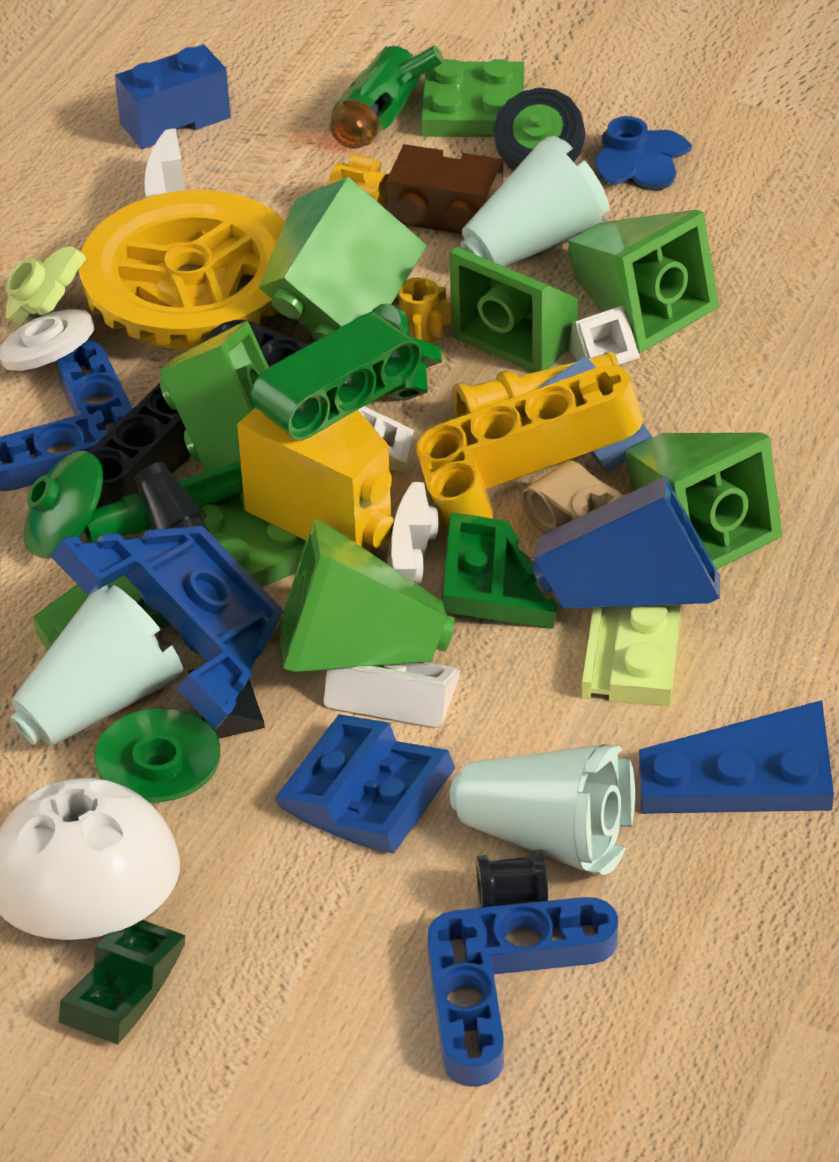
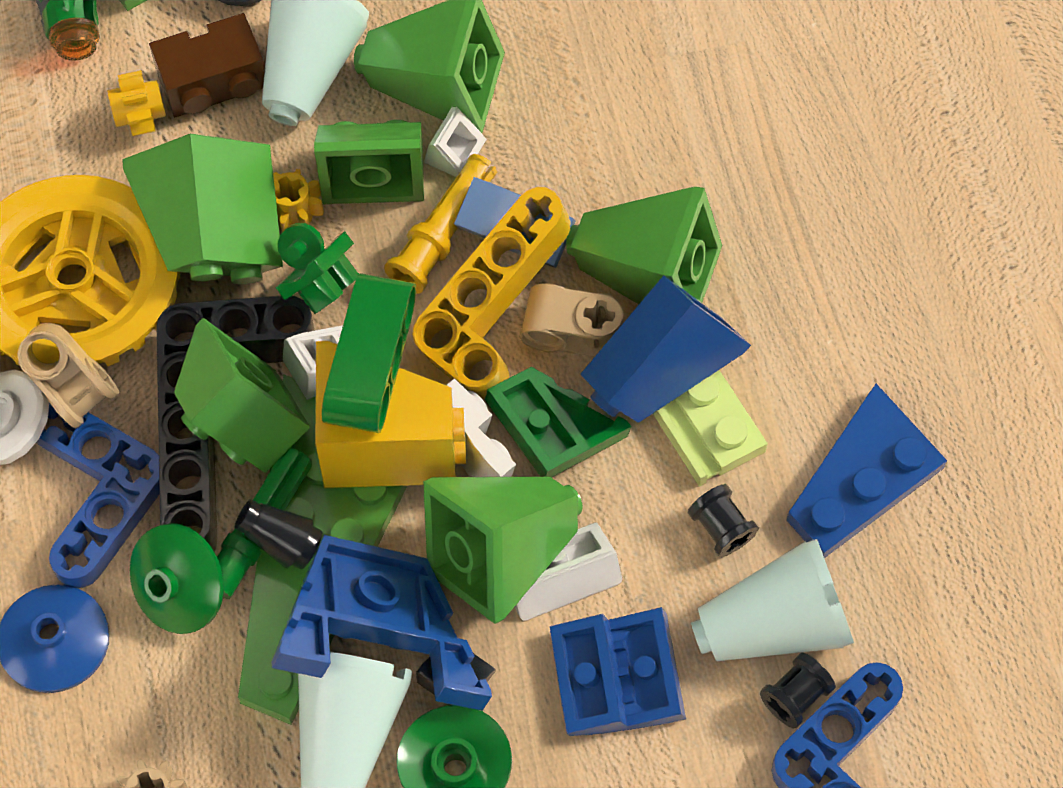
camera: 40 degrees left, 20 degrees up
(110, 322) = (67, 376): none -> tan piece
(570, 712) = (723, 520): none -> black bush

